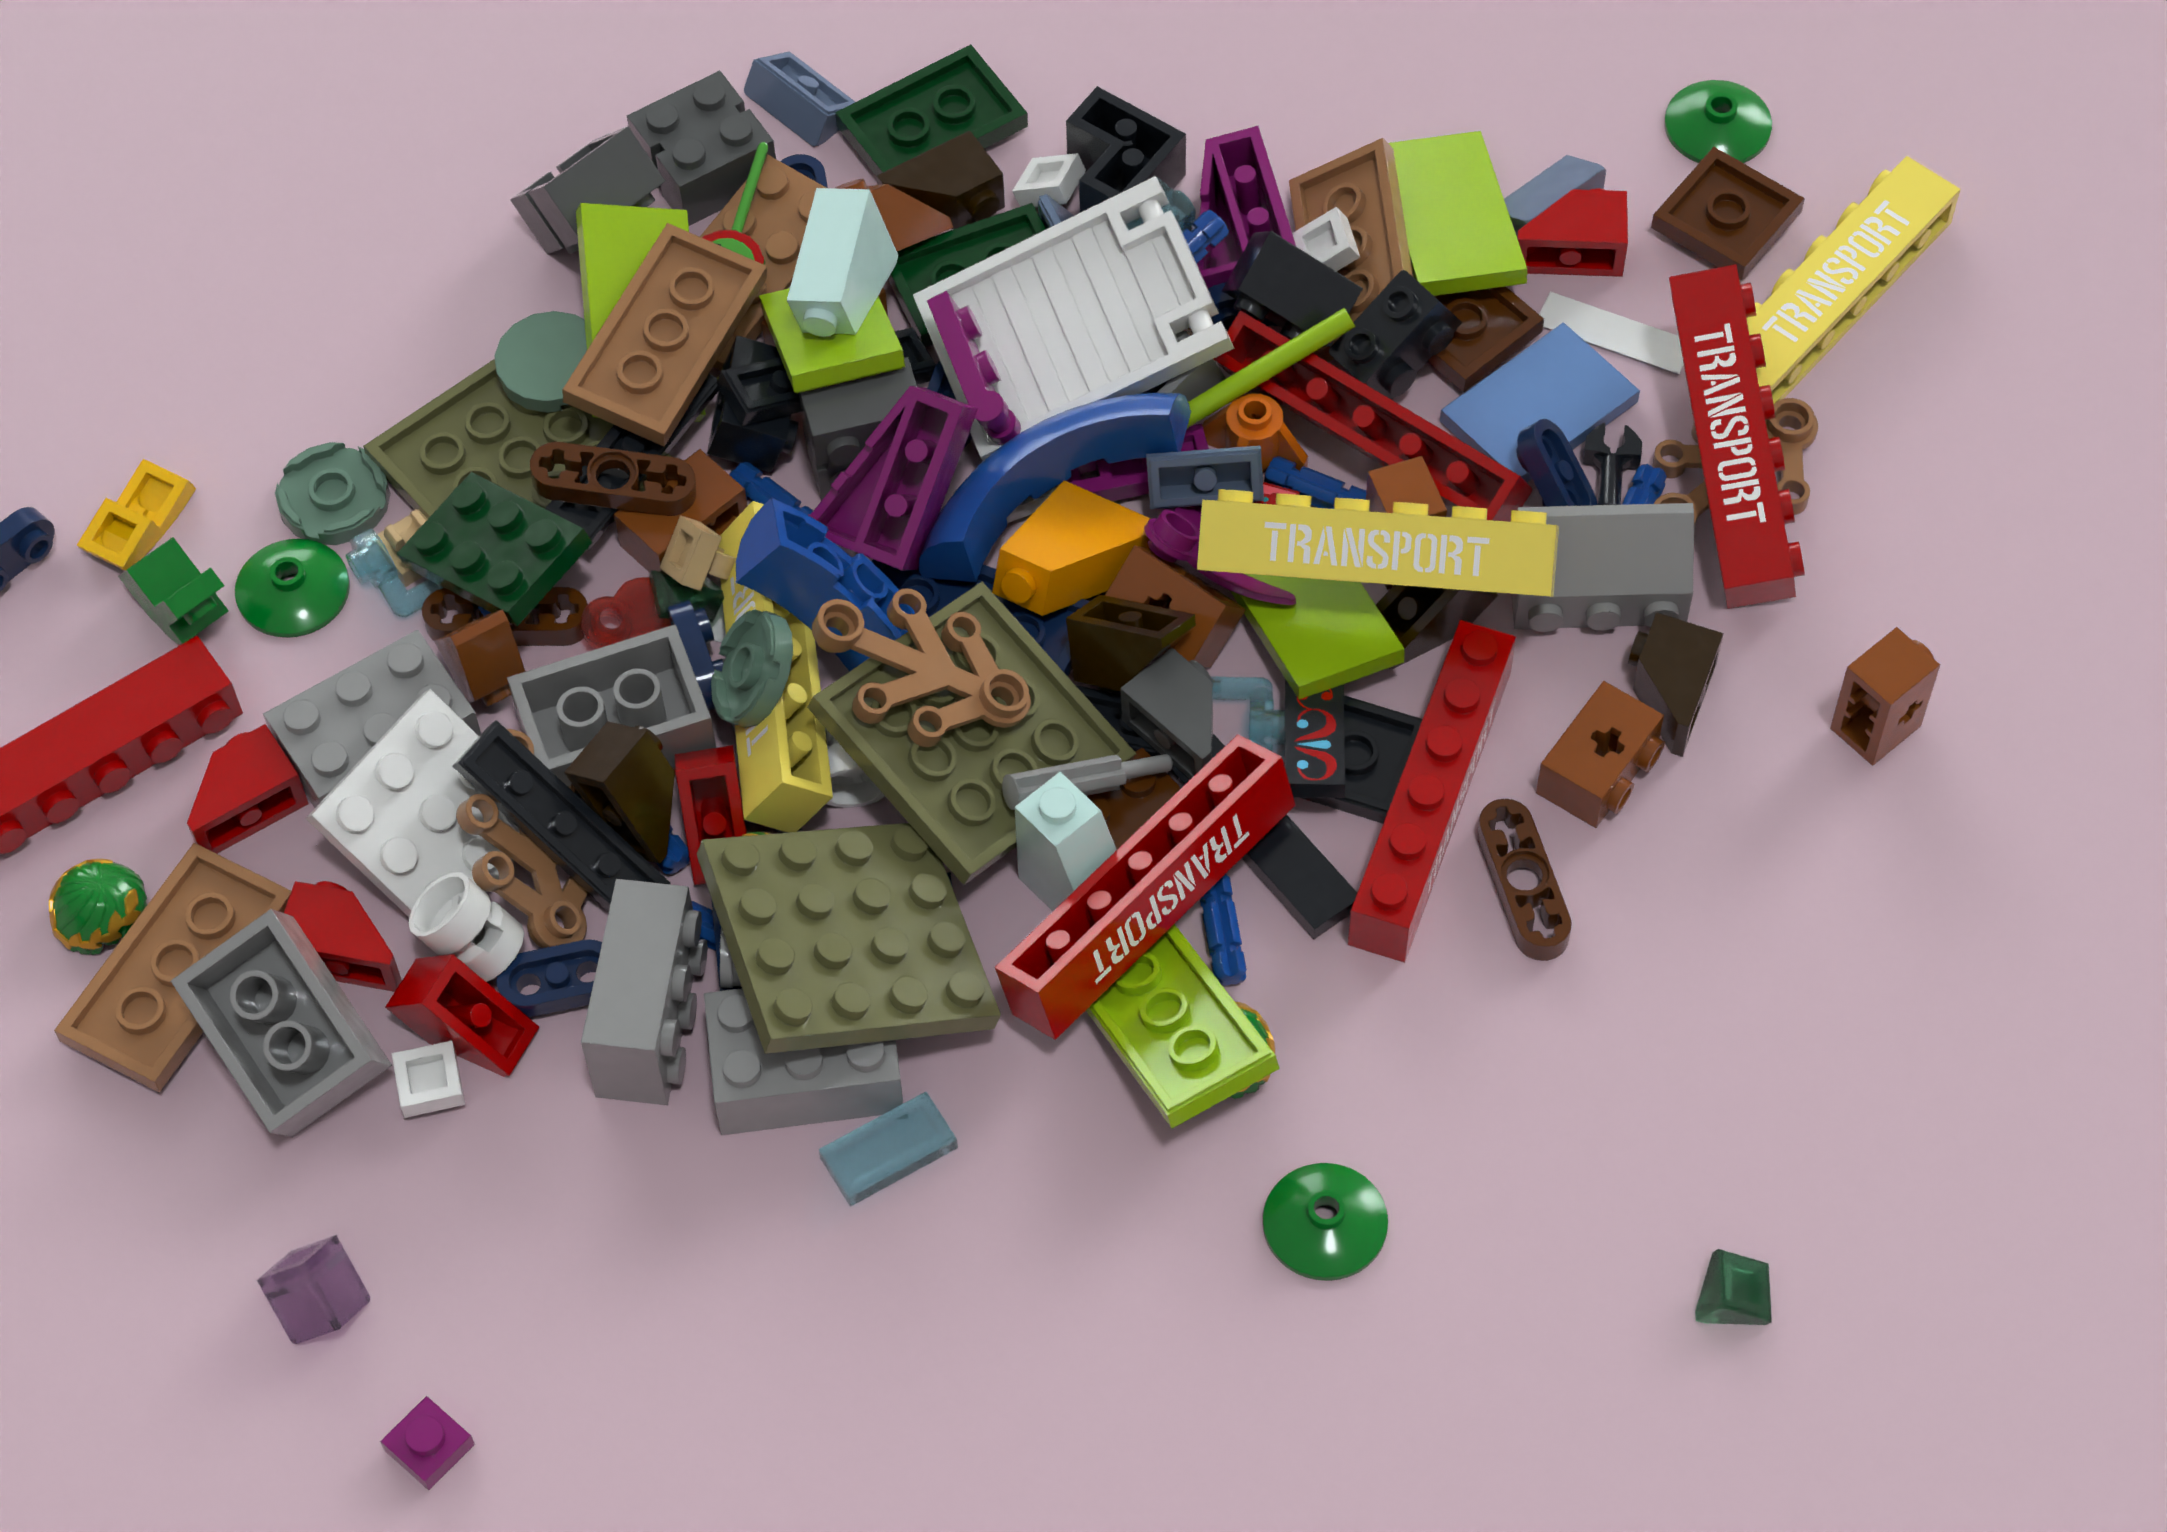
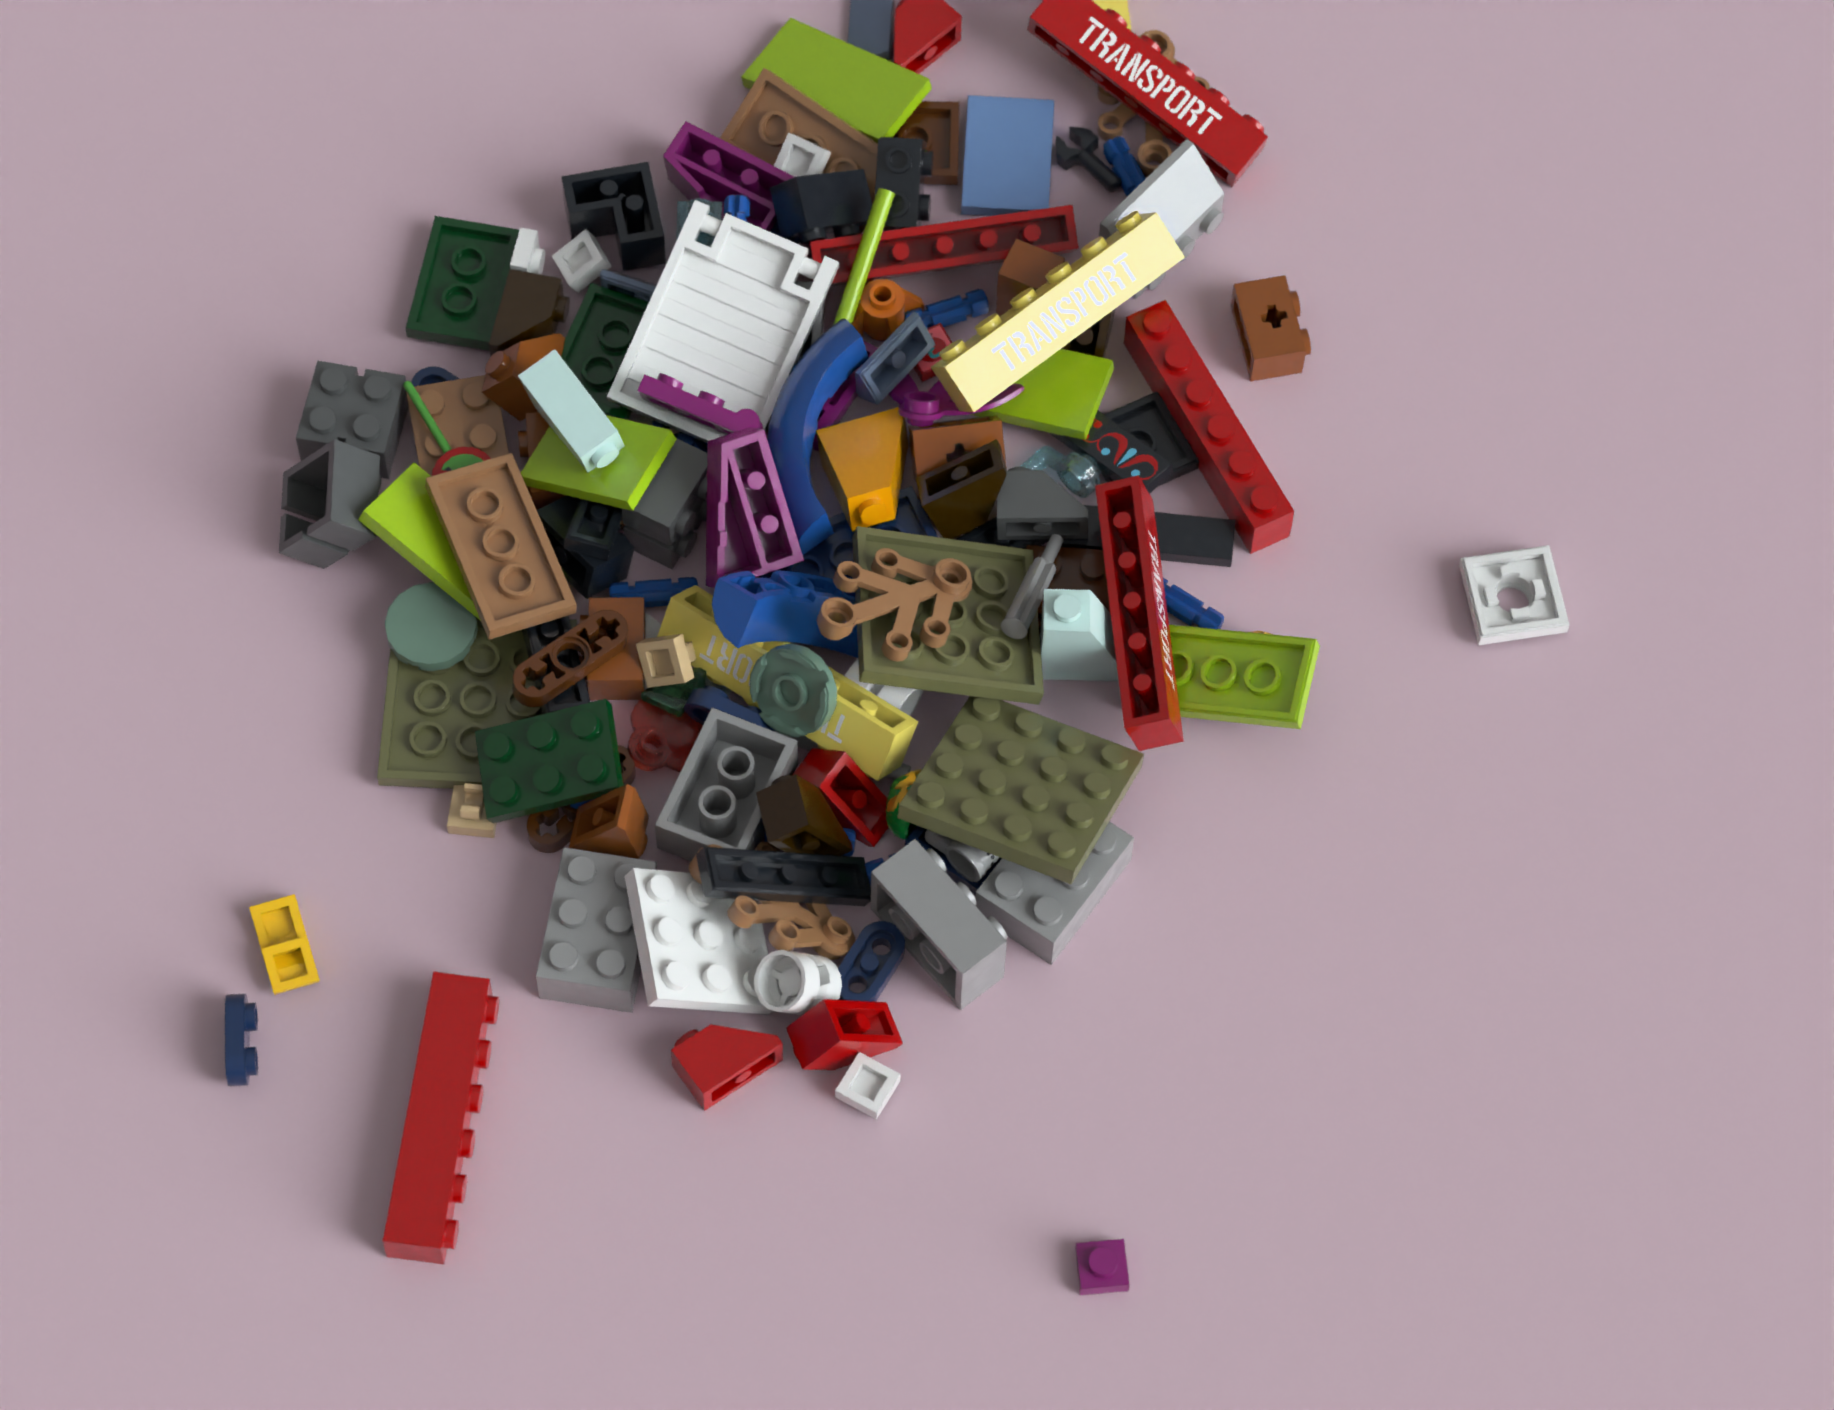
camera: 50 degrees left, 5 degrees up
(95, 905) = (558, 1177): green hair -> none
(130, 1007) = (649, 1163): medium nougat plate -> none
(175, 591) = (376, 964): green brick -> none
(244, 791) = (562, 1030): red slope -> none
(281, 1023) = (770, 1127): light grey brick -> none
(297, 604) = (432, 918): green dish -> none
(314, 1290) = (949, 1250): clear purple panel -> none
(332, 493) = (384, 824): sand green tile -> none
(373, 563) = (471, 838): clear light blue plate -> none
(796, 96) = (362, 338): sand blue slope -> none
(888, 1148) = (1149, 885): clear light blue tile -> none
(1006, 136) = (527, 254): none -> white plate
(1322, 1246) = (1403, 726): green dish -> none
(1520, 903) = (1309, 451): reddish brown beam -> none
(1551, 1169) = (1523, 569): none -> white piece
(1553, 466) = (1059, 182): dark blue plate -> none
(1614, 332) = (996, 76): white sticker -> none
(1674, 673) = (1256, 247): dark brown slope -> none
(1735, 1291) = (1642, 553): clear green slope -> none
(1885, 695) = (1382, 163): dark orange brick -> none

